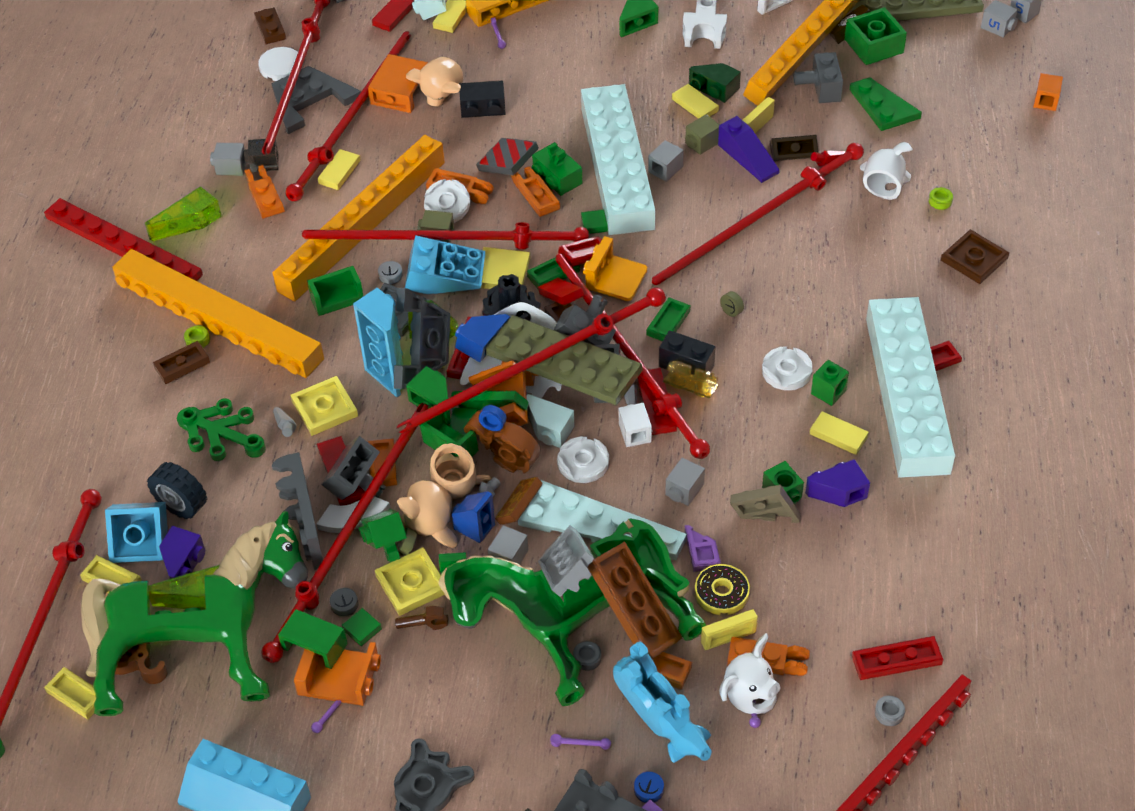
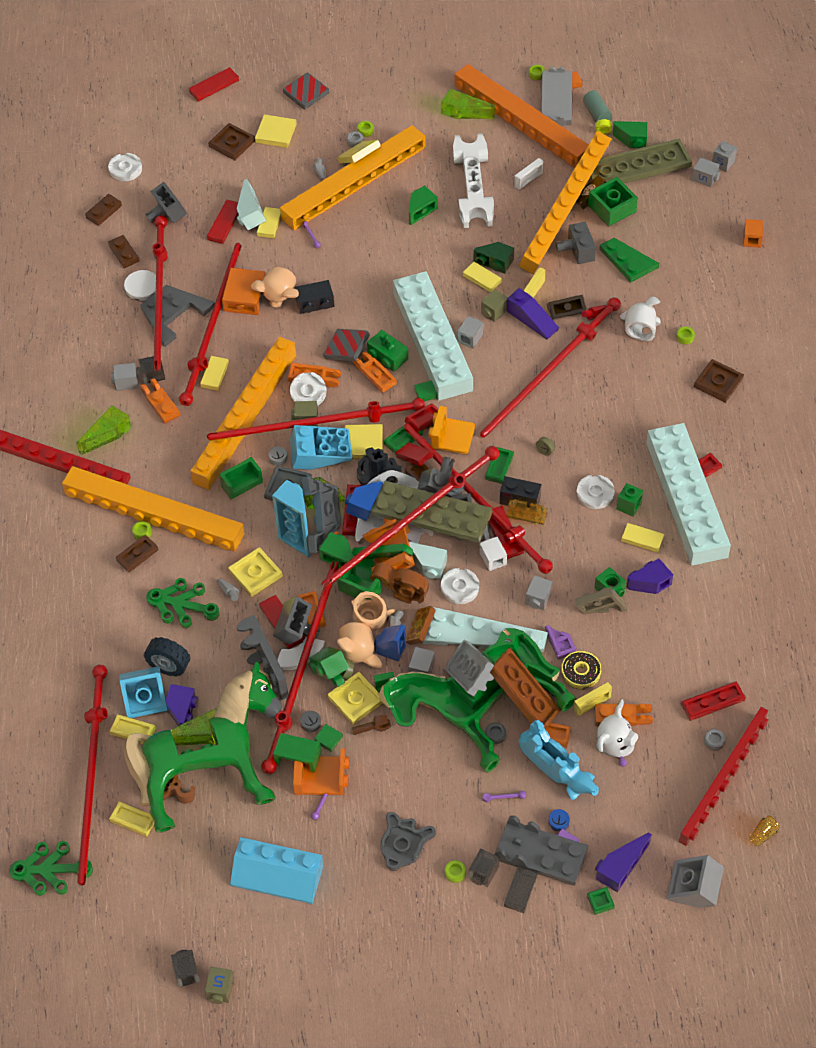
camera: 10 degrees left, 5 degrees up
(492, 418) = (392, 567): blue tile -> none

